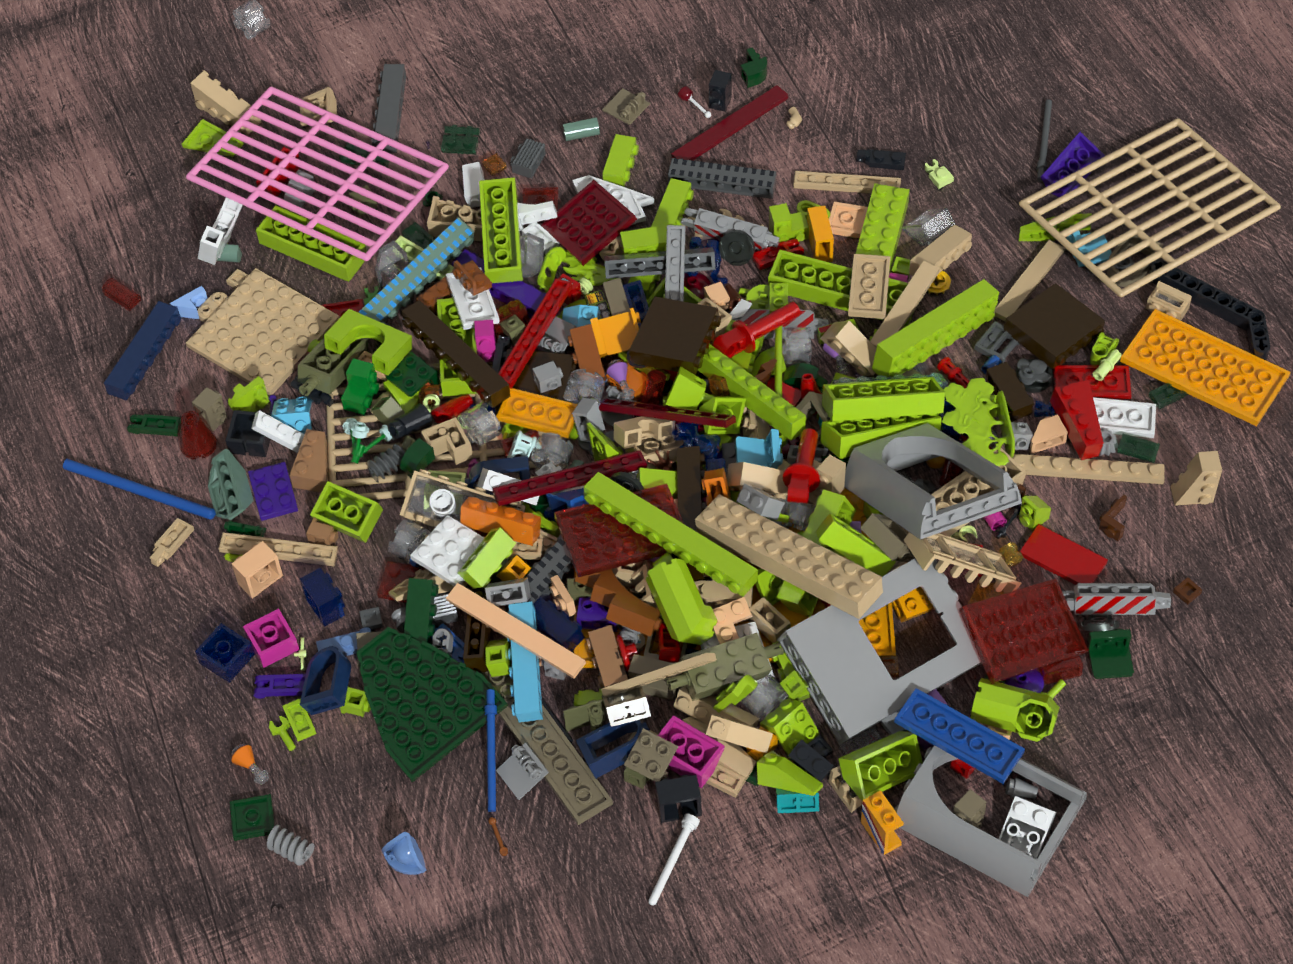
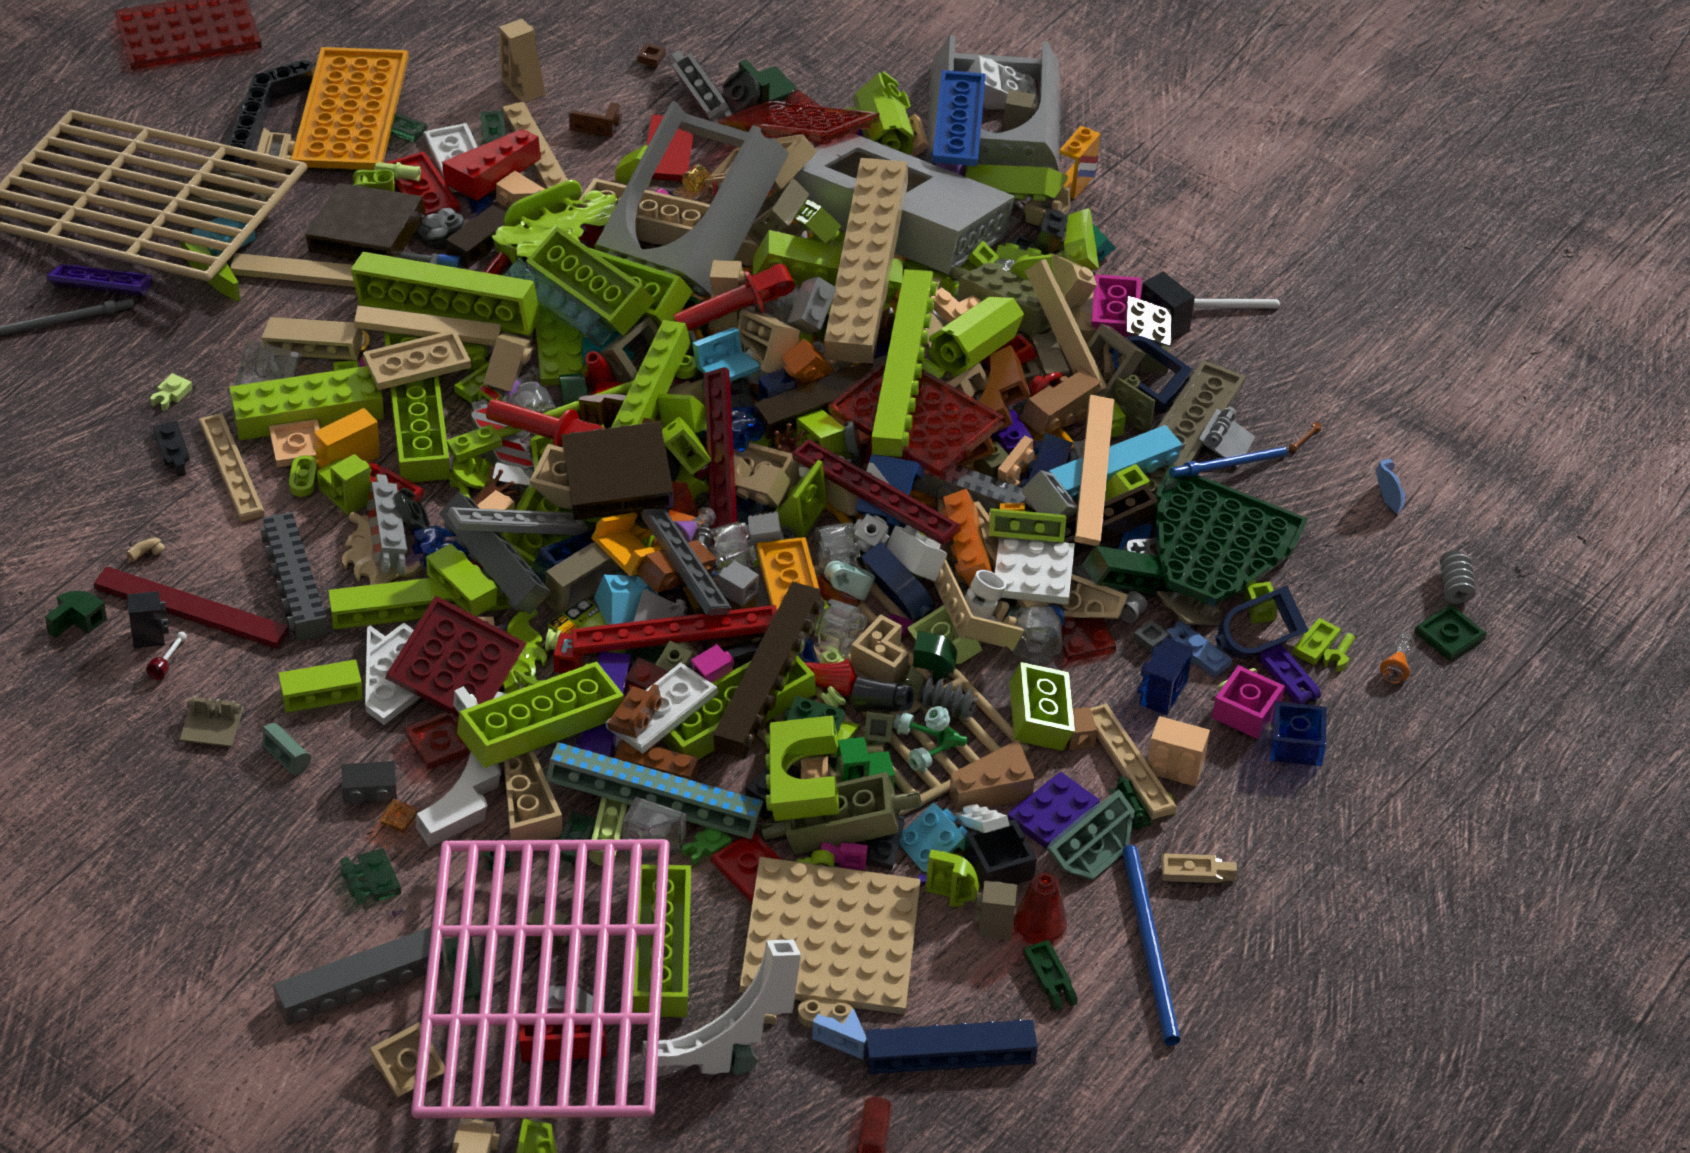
camera: 125 degrees left, 10 degrees down
(575, 348) = (686, 562): none -> dark grey tile

